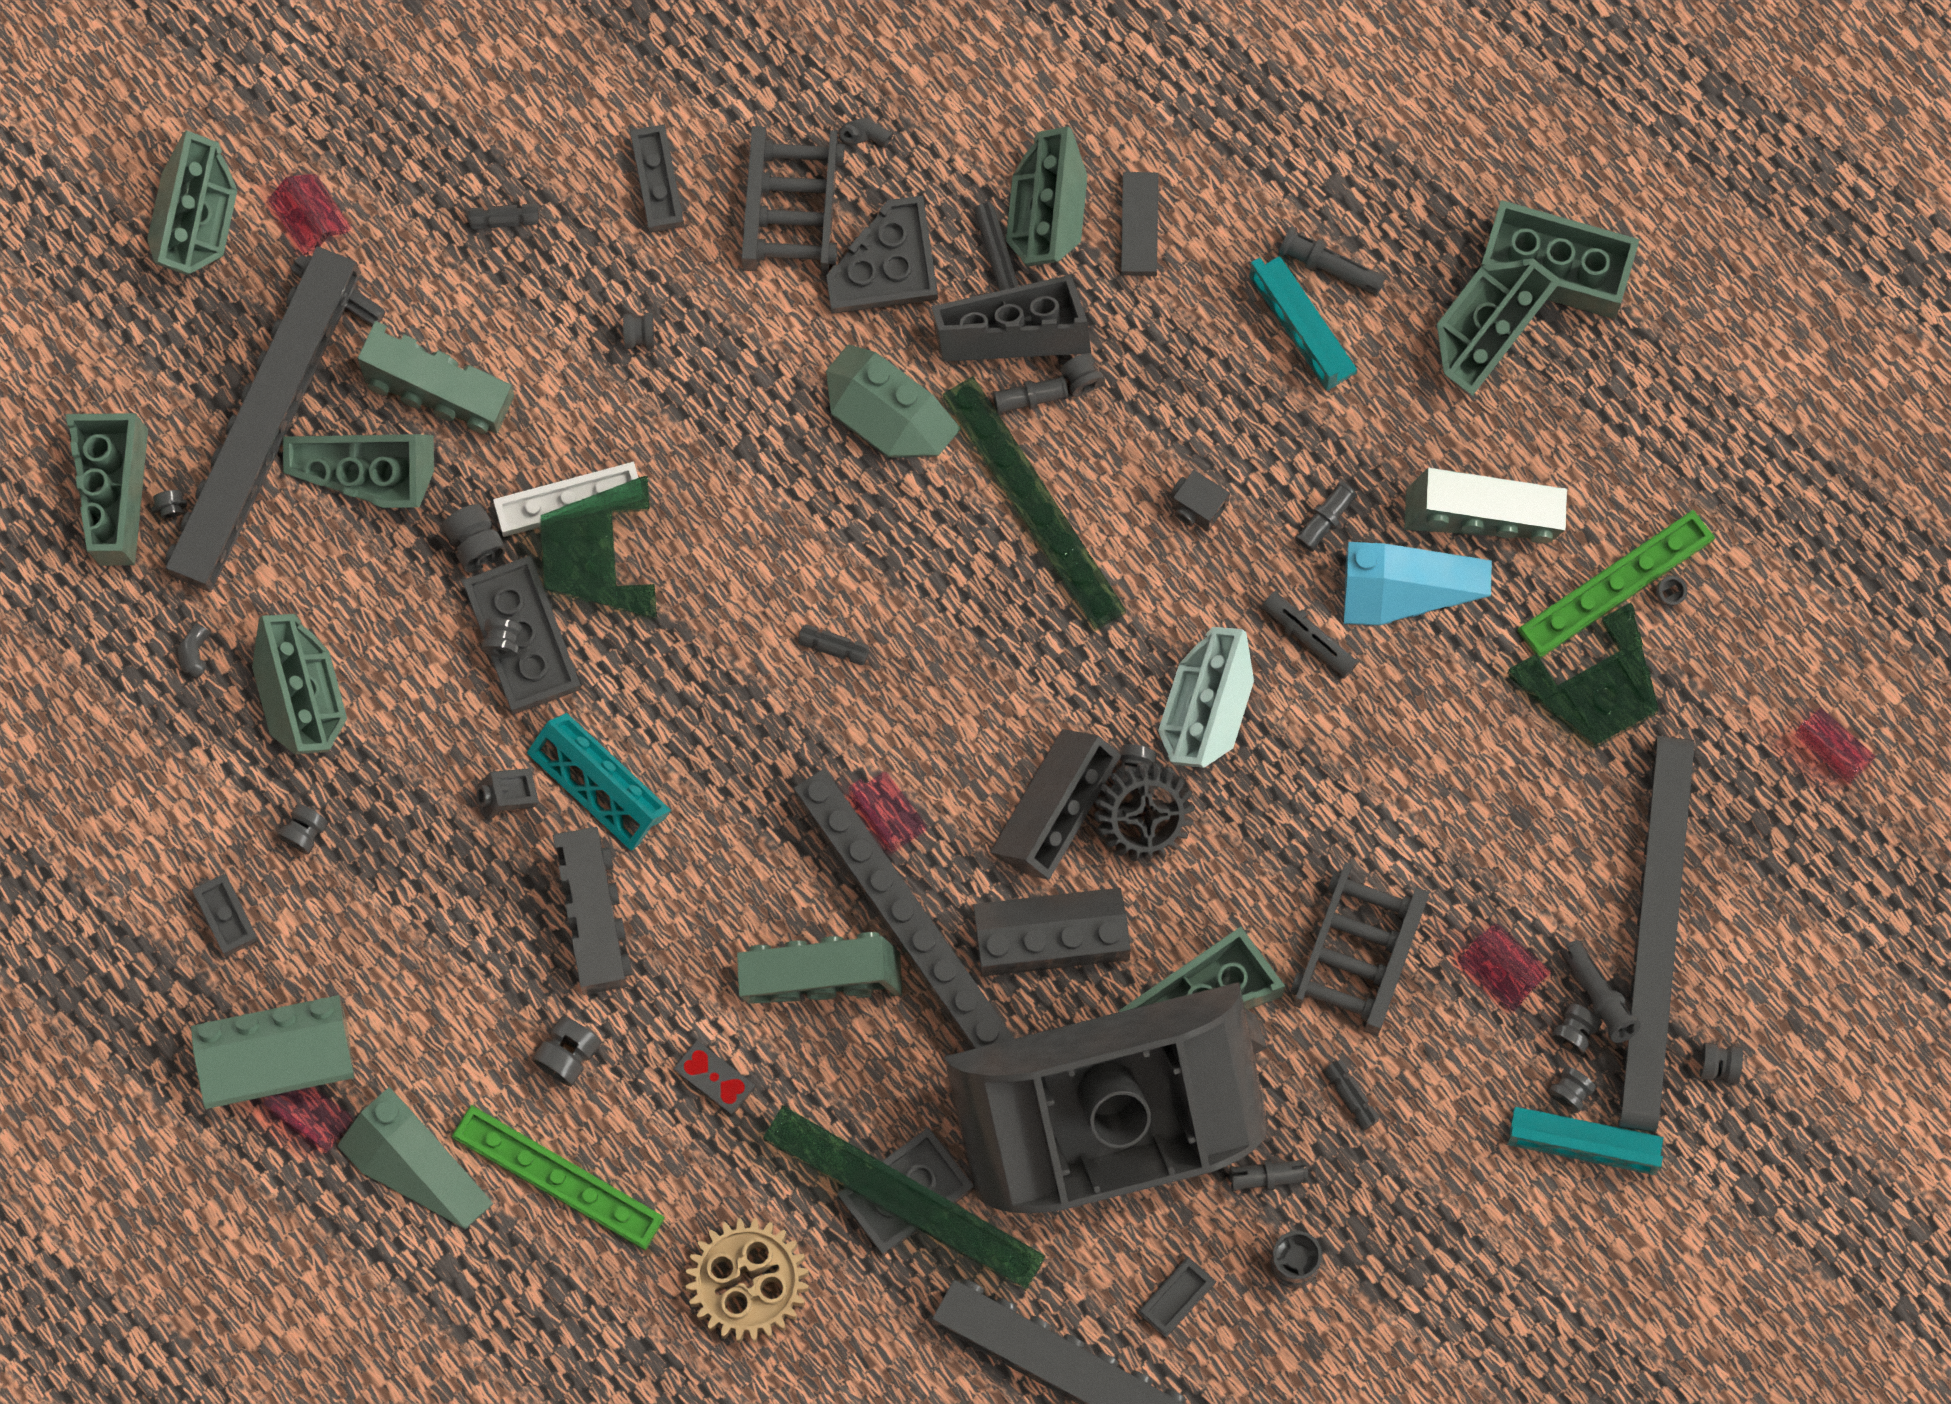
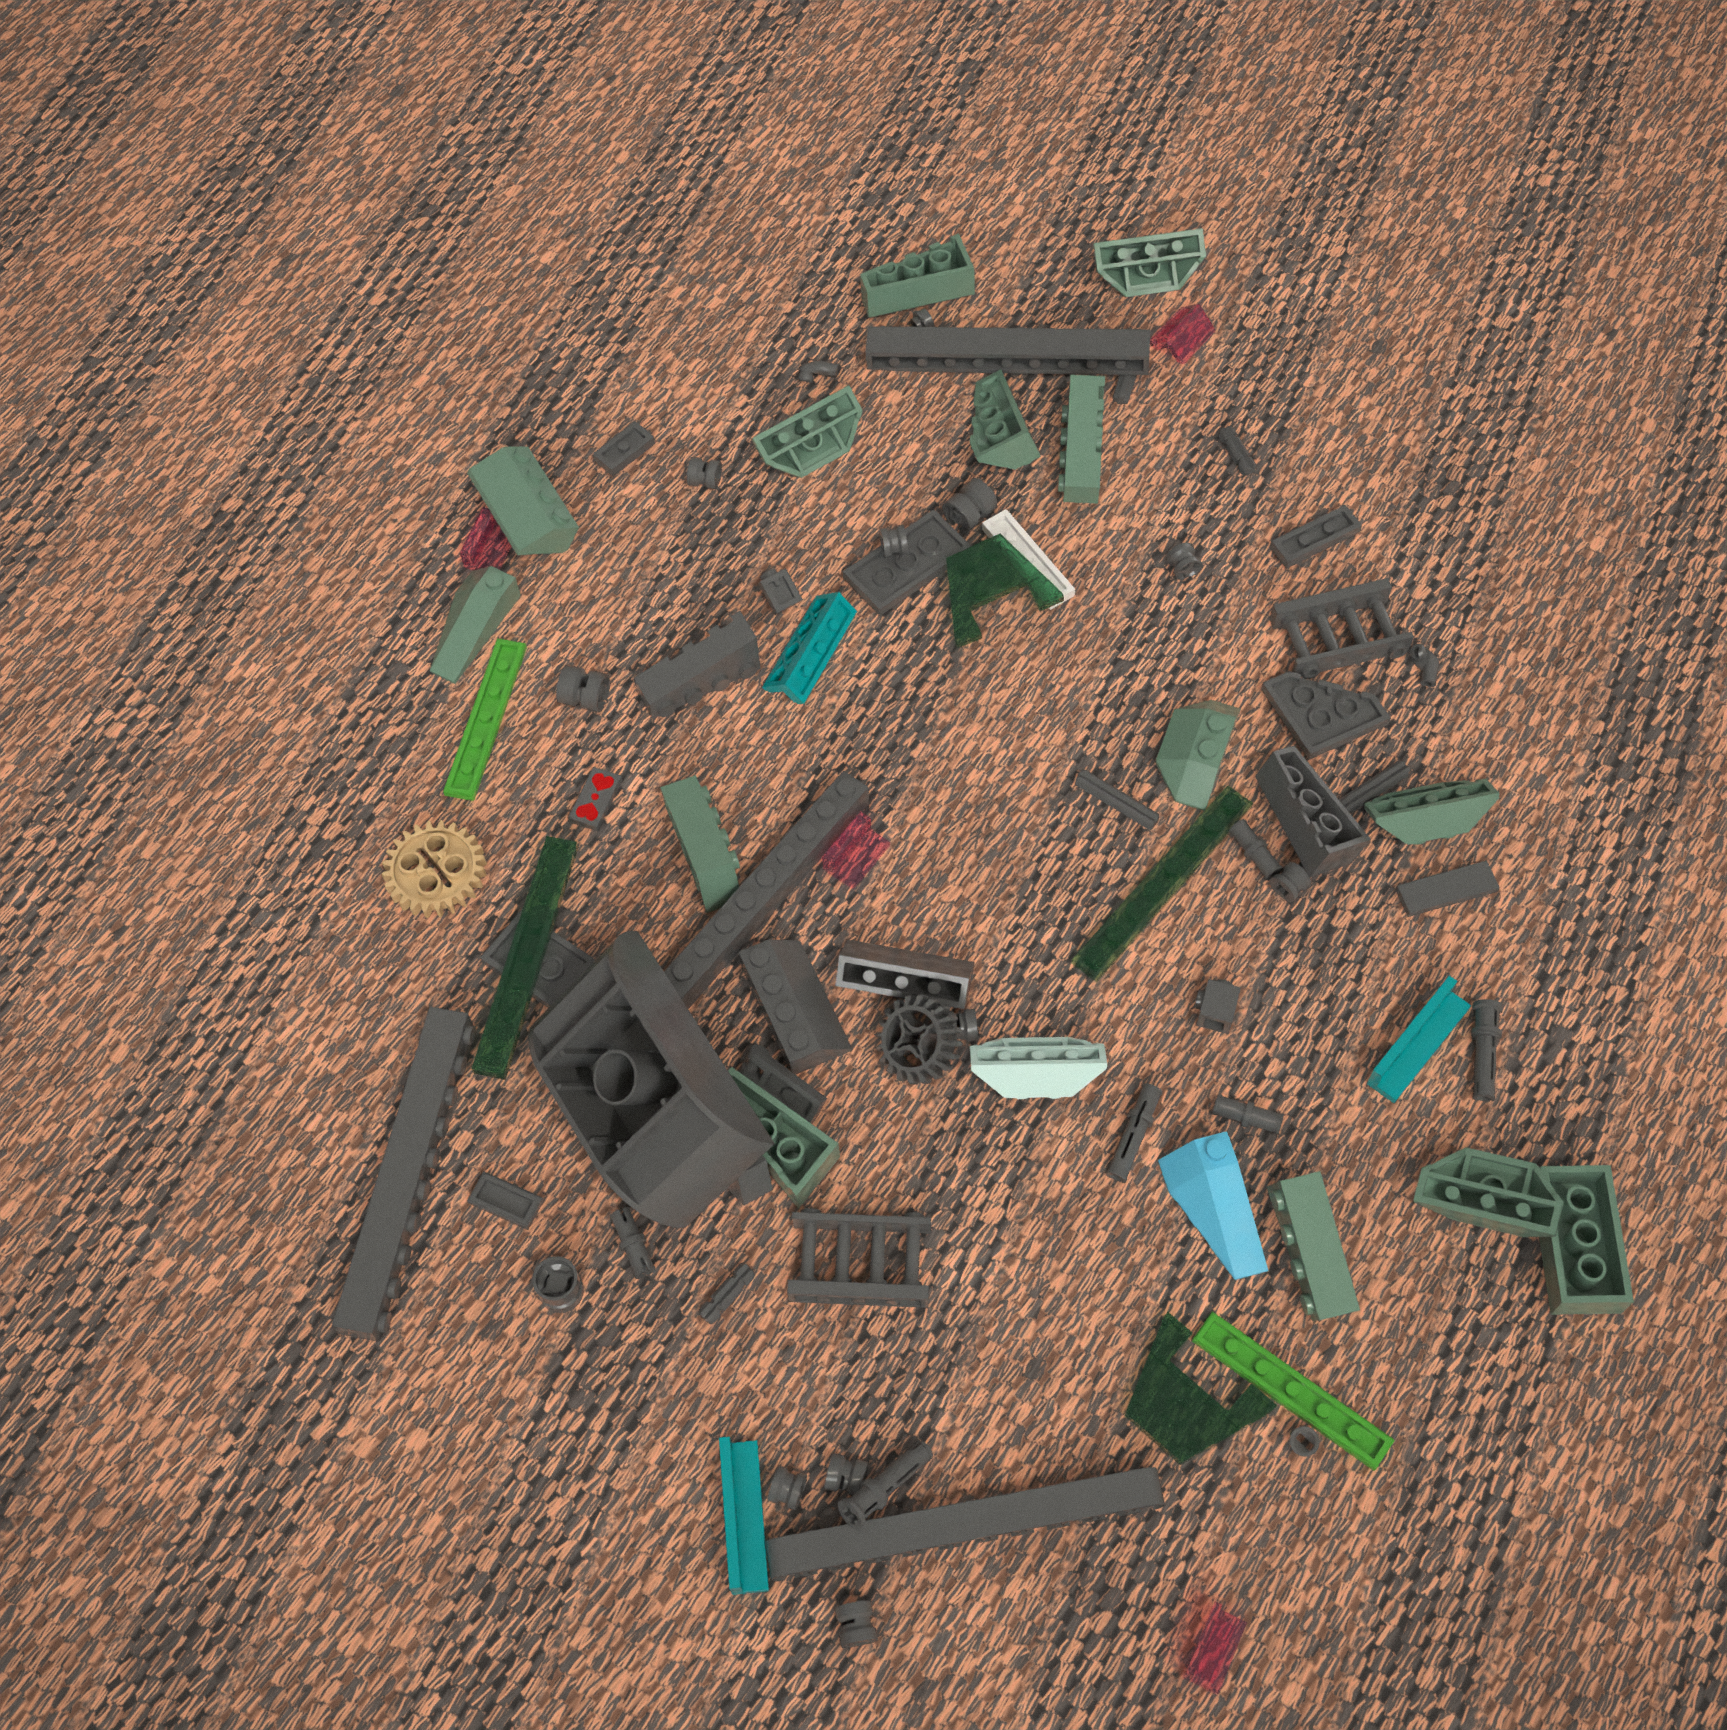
camera: 75 degrees right, 10 degrees down
(833, 644) = (982, 773): dark grey axle -> none
(916, 514) = (1117, 799): none -> dark grey axle
(1143, 970) = (782, 1083): none -> dark grey plate
(1504, 966) = (888, 1393): clear pink panel -> none

